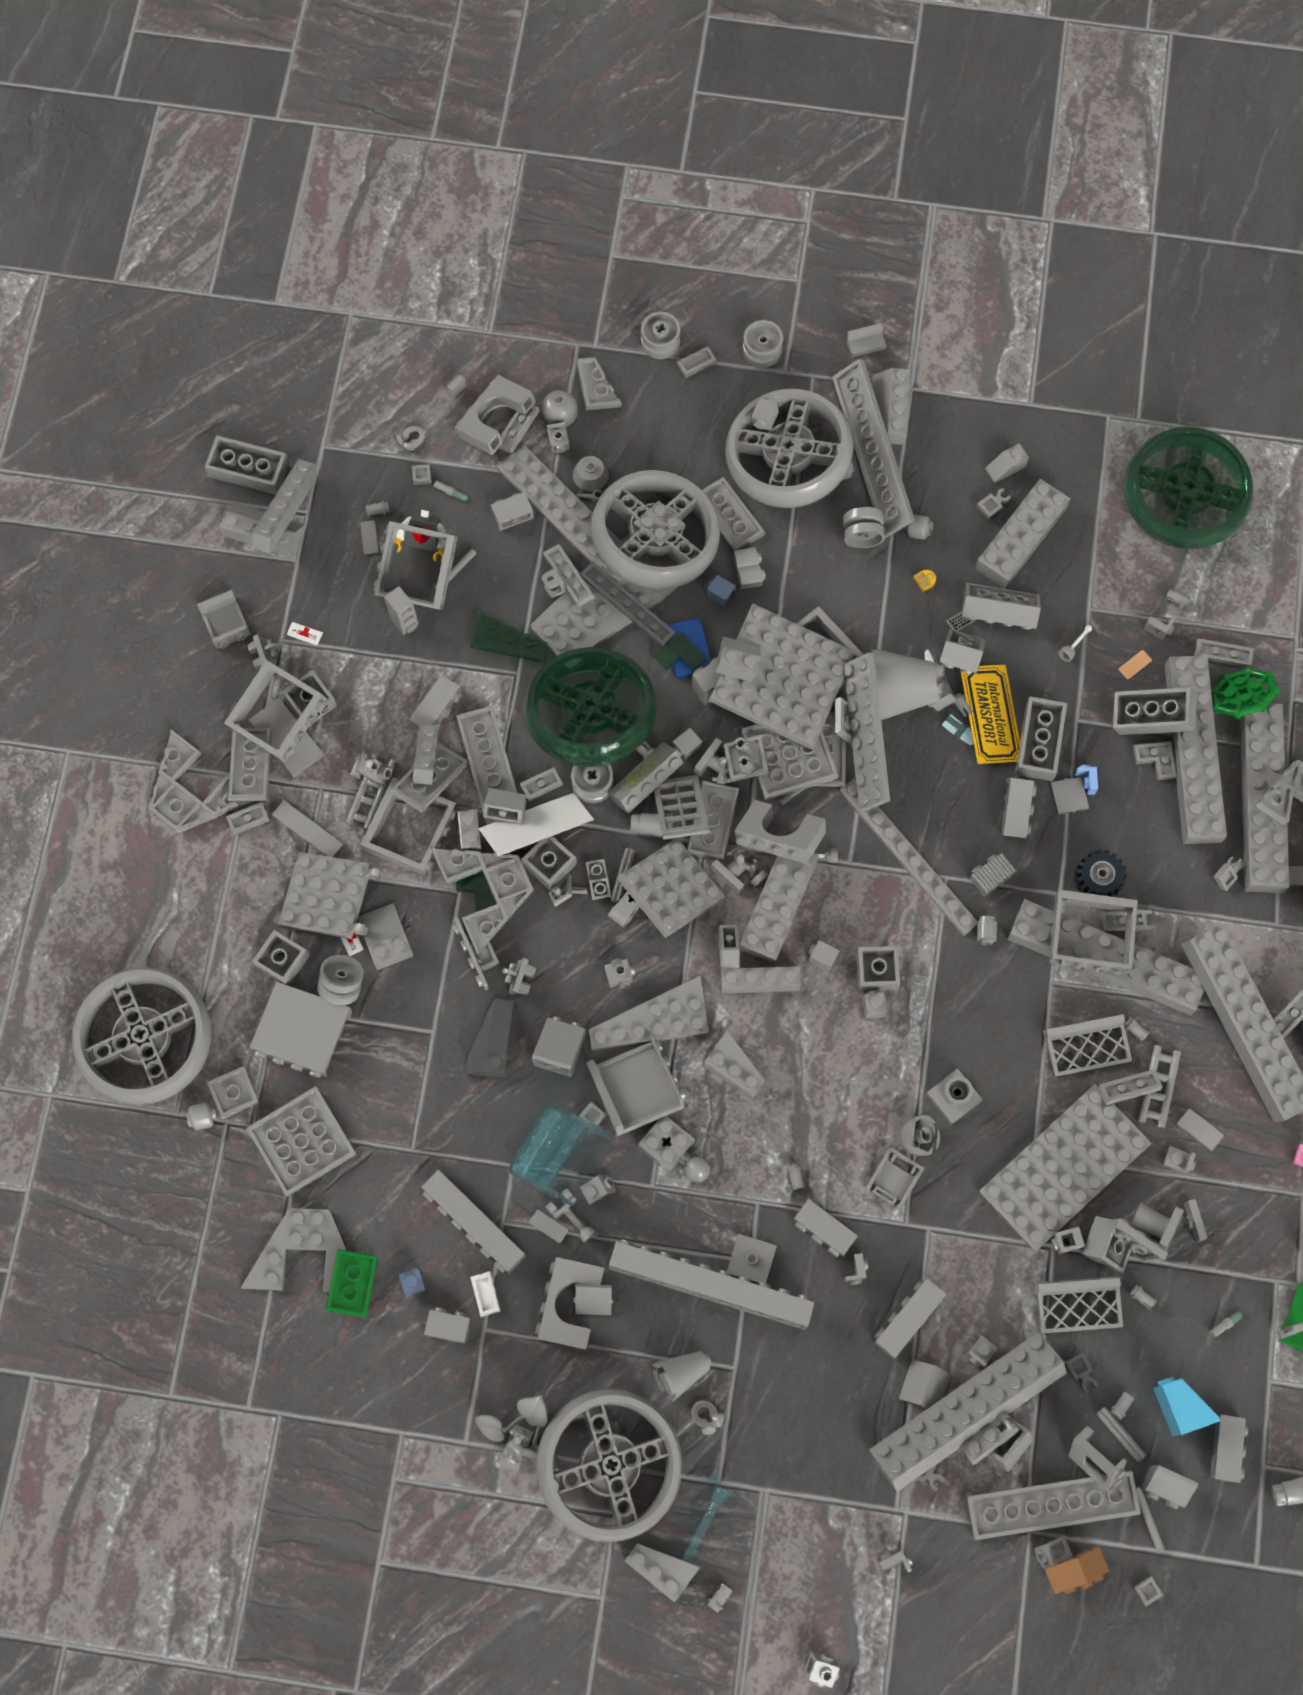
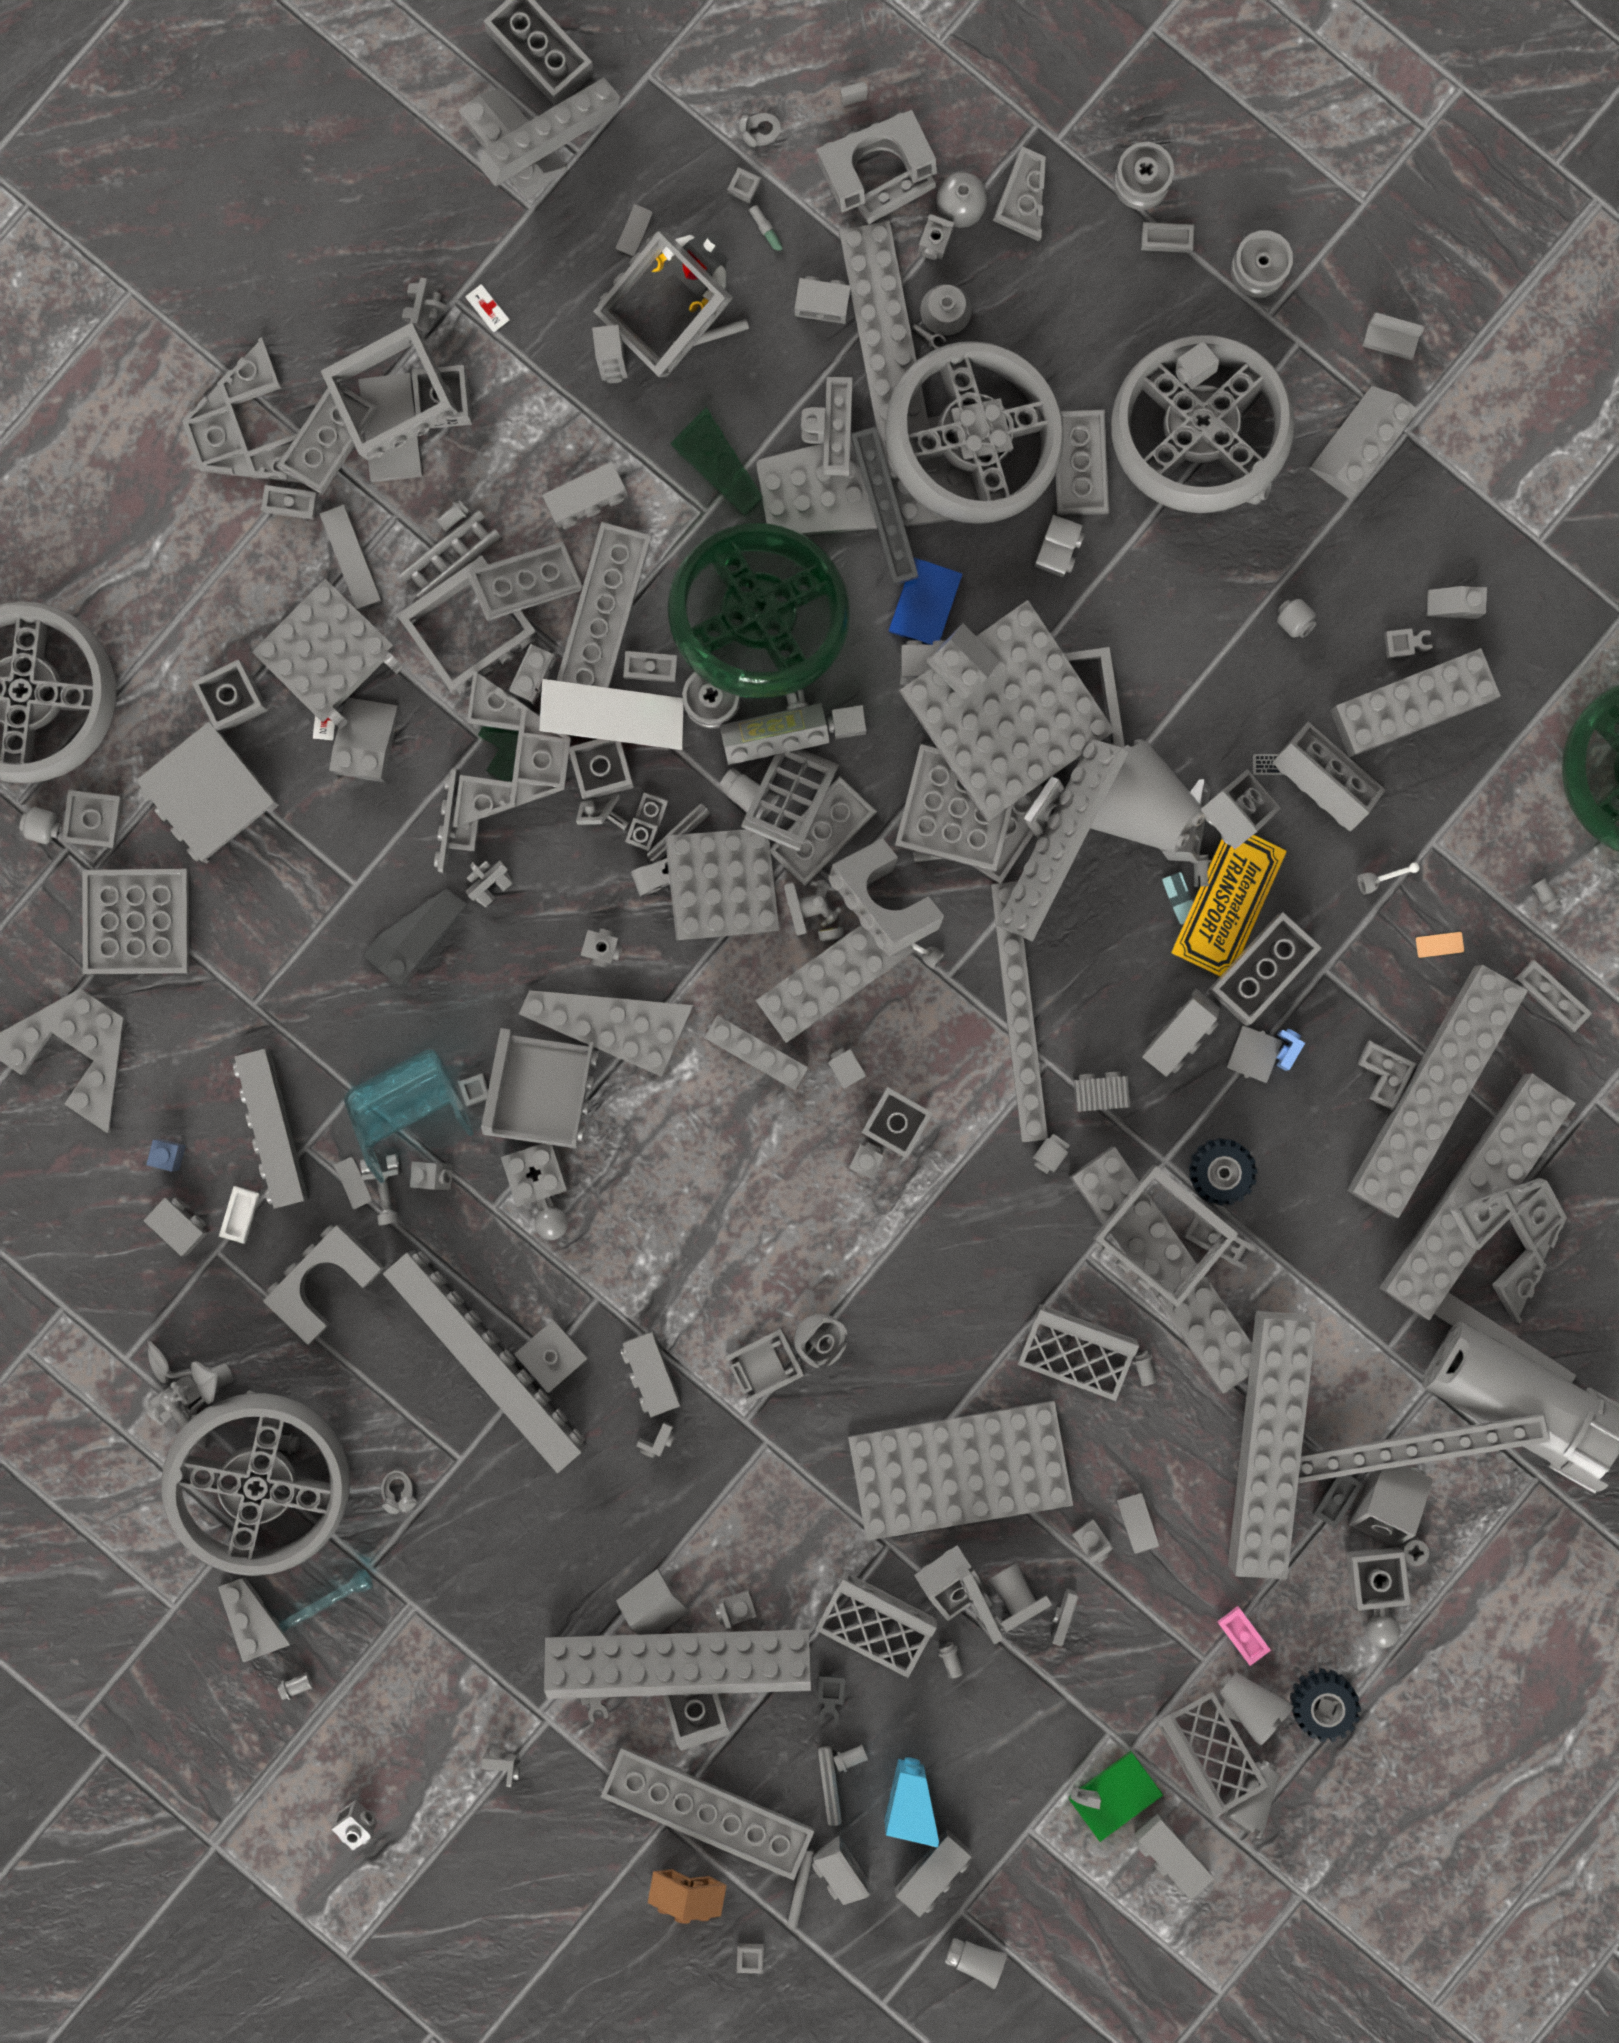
camera: 30 degrees right, 15 degrees up
(224, 619) = (401, 234): light grey panel -> none
(340, 980) = (280, 764): light grey wheel -> none
(351, 1283) = (98, 1115): green tile -> none
(374, 769) = (464, 533): light grey hips -> none
(378, 508) = (664, 199): light grey pin -> none
(425, 754) = (533, 551): light grey brick -> none
(504, 806) = (588, 670): light grey brick -> none
(559, 1046) = (482, 990): light grey slope -> none
(593, 1299) = (350, 1294): light grey piece -> none
(679, 649) = (914, 599): clear green tile -> none
(680, 1373) = (396, 1431): light grey cone -> none
(715, 762) = (868, 765): light grey piece -> none
(720, 590) = (1007, 554): sand blue brick -> none
(729, 946) = (743, 994): light grey brick -> none
(734, 1067) = (663, 1132): light grey wedge -> none
(746, 758) = (902, 785): light grey plate -> none
(795, 1176) = (656, 1296): light grey pin -> none
(864, 527) = (1227, 580): light grey wheel -> none
(873, 446) = (1307, 483): light grey plate -> none
(910, 1318) = (681, 1526): light grey brick -> none
(925, 580) = (1261, 689): yellow tile -> none
(954, 1106) = (881, 1304): light grey plant -> none
(989, 1438) = (680, 1707): light grey plate -> none
(1053, 1552) = (675, 1860): light grey bracket -> none
(1072, 1235) = (912, 1560): light grey brick -> none
(1082, 1448) = (774, 1801): light grey window -> none
(1130, 1087) = (1090, 1431): light grey plate -> none
(1154, 711) = (1417, 1021): light grey brick -> none
(1158, 628) = (1495, 917): light grey bracket -> none
(1170, 1081) = (1110, 1447): light grey bar -> none
(1226, 1324) = (1023, 1744): light grey piece -> none
(1227, 873) = (1371, 1259): light grey plate -> none
(1251, 691) = (1541, 1050): green plate -> none

